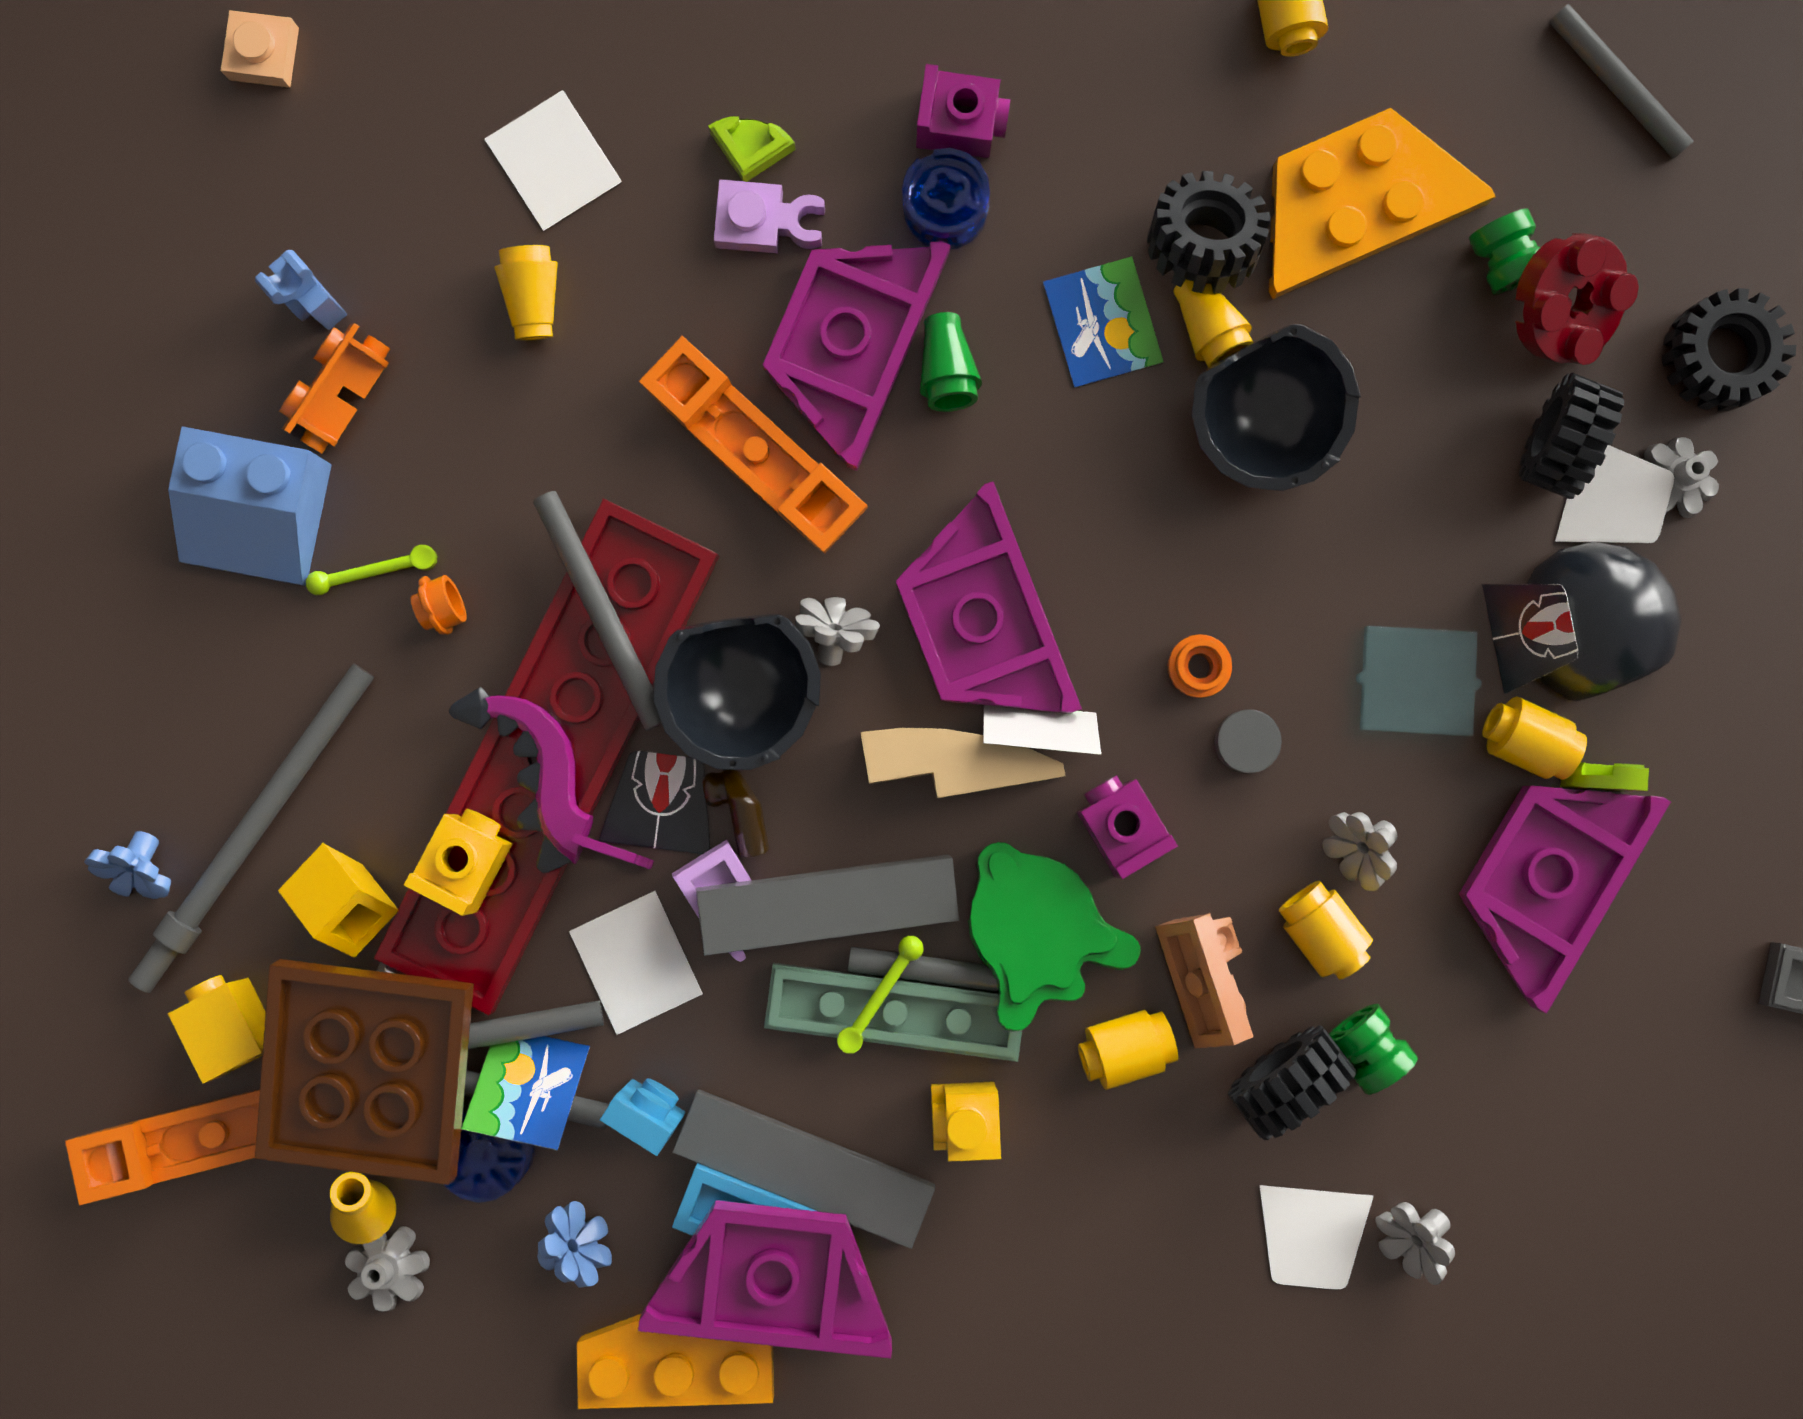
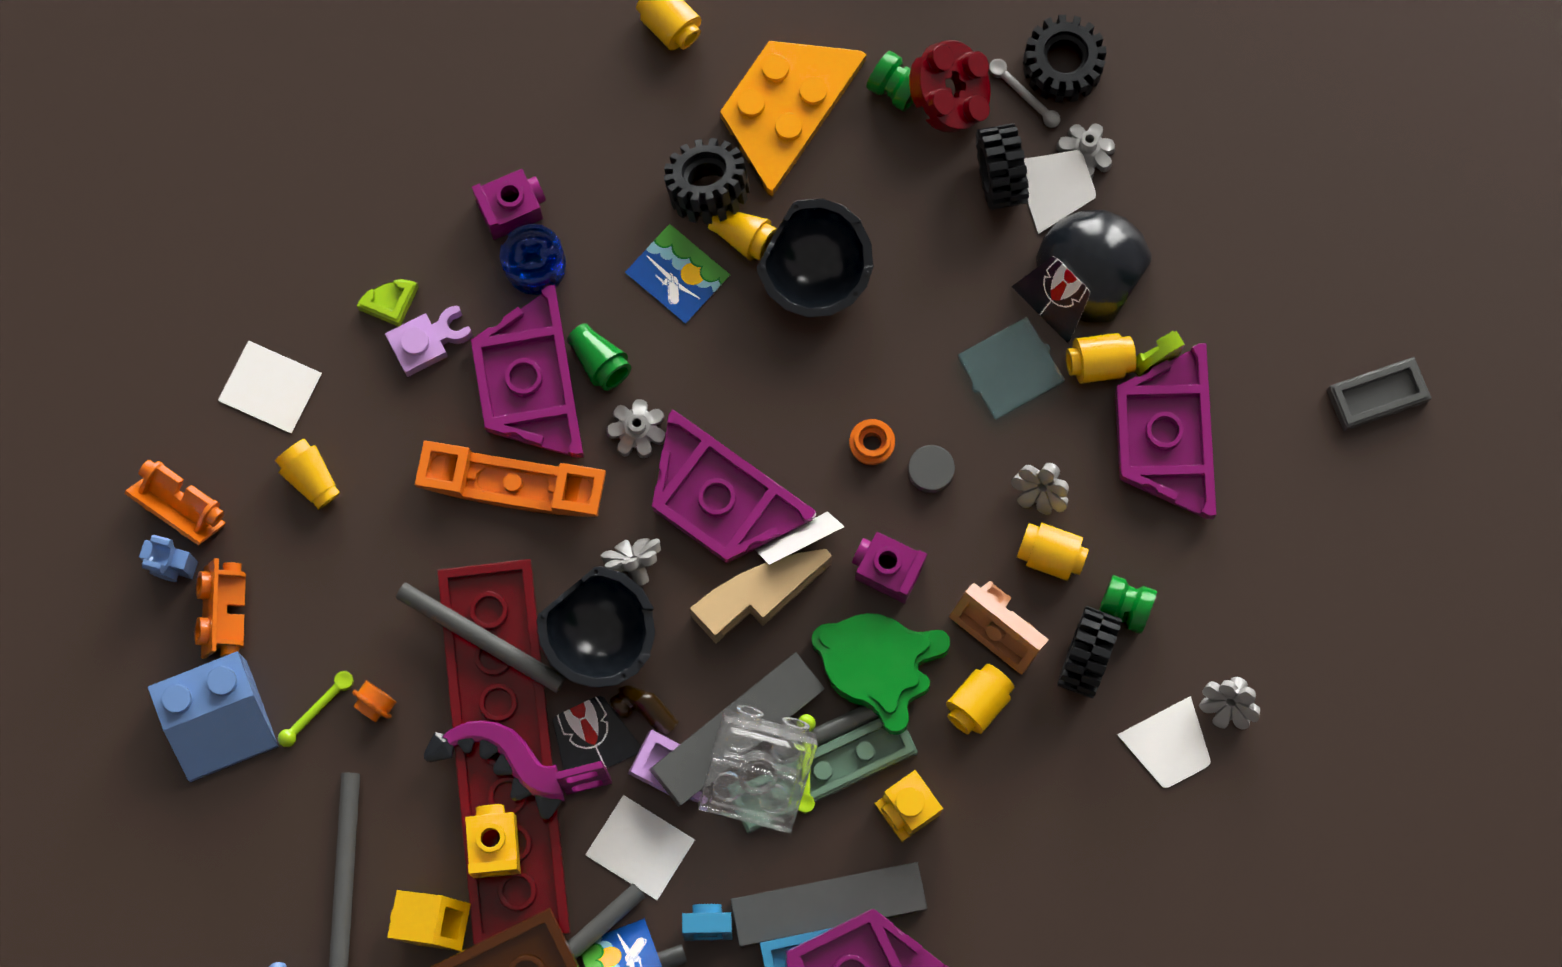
camera: 30 degrees left, 10 degrees down
(259, 49) = (40, 432): light nougat plate -> none
(353, 232) = (188, 512): none -> orange hinge
(818, 973) = (758, 768): none -> clear plate
(938, 490) = (640, 436): none -> light grey plant
(1638, 315) = (998, 69): none -> light grey hinge

